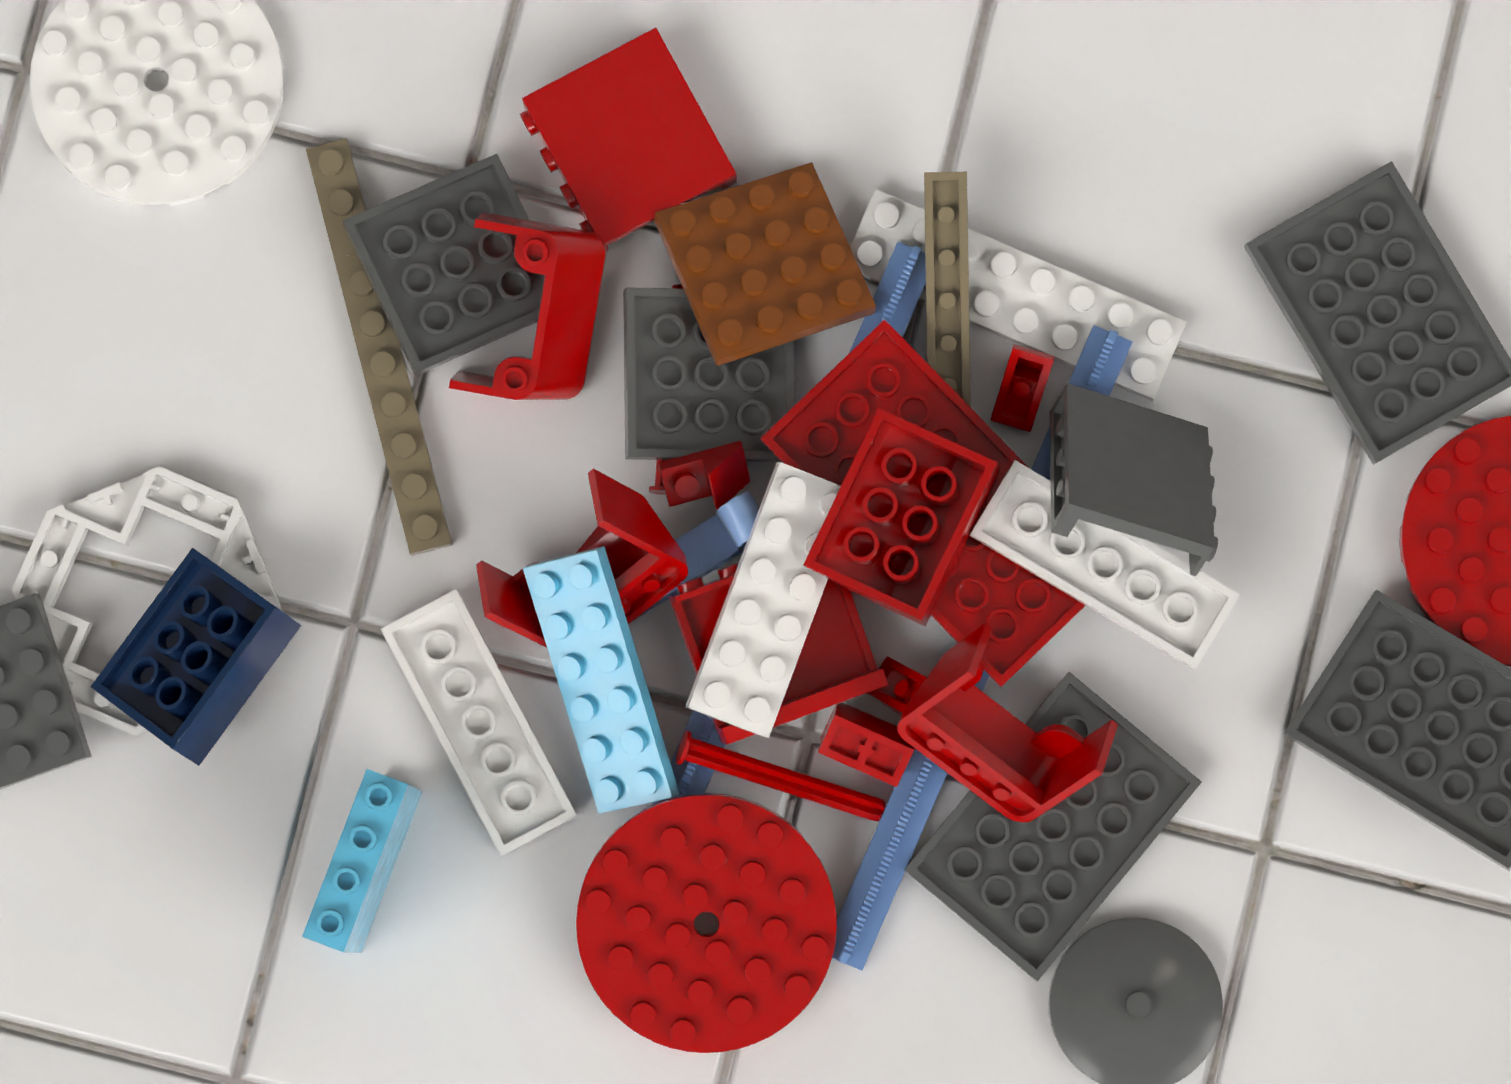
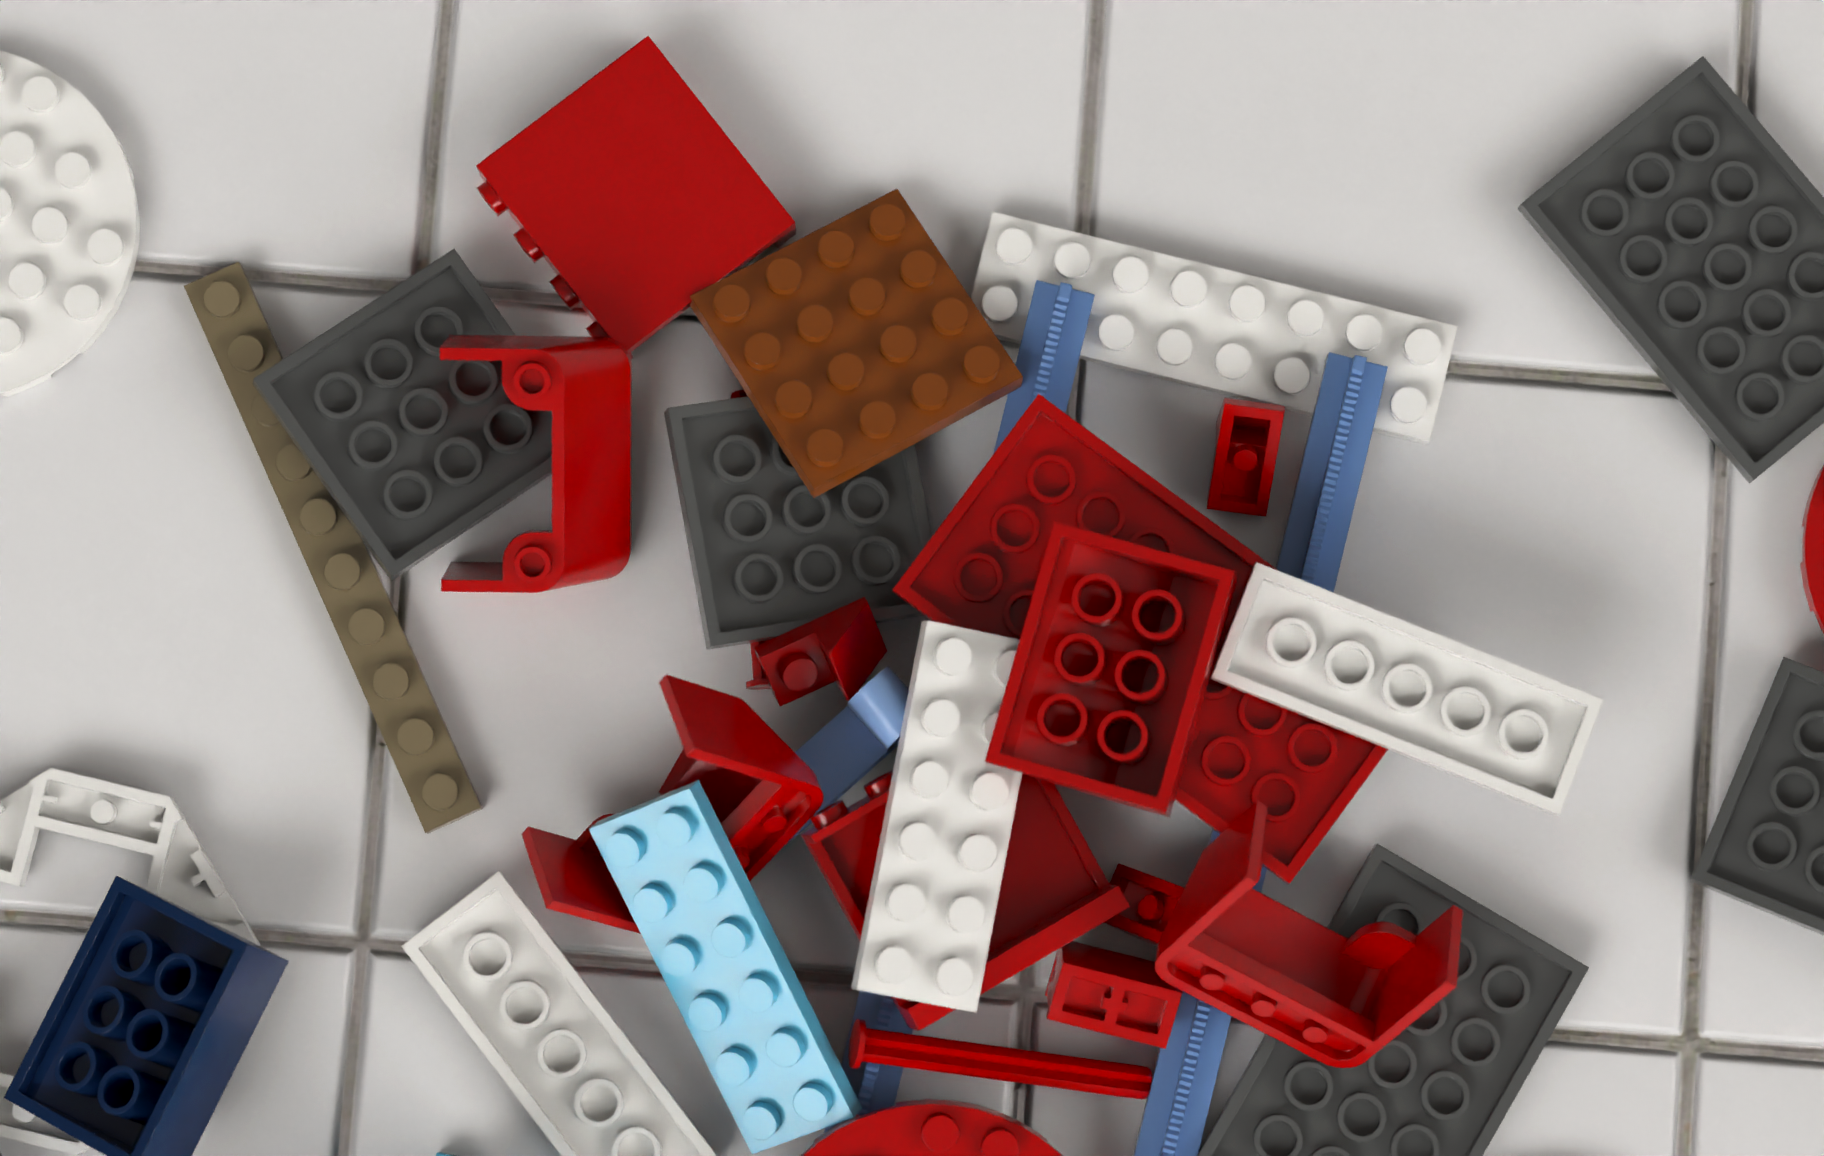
camera: 15 degrees left, 0 degrees up
(947, 278) = (1116, 321): dark tan plate -> none
(1131, 473) = (1421, 554): dark grey panel -> none

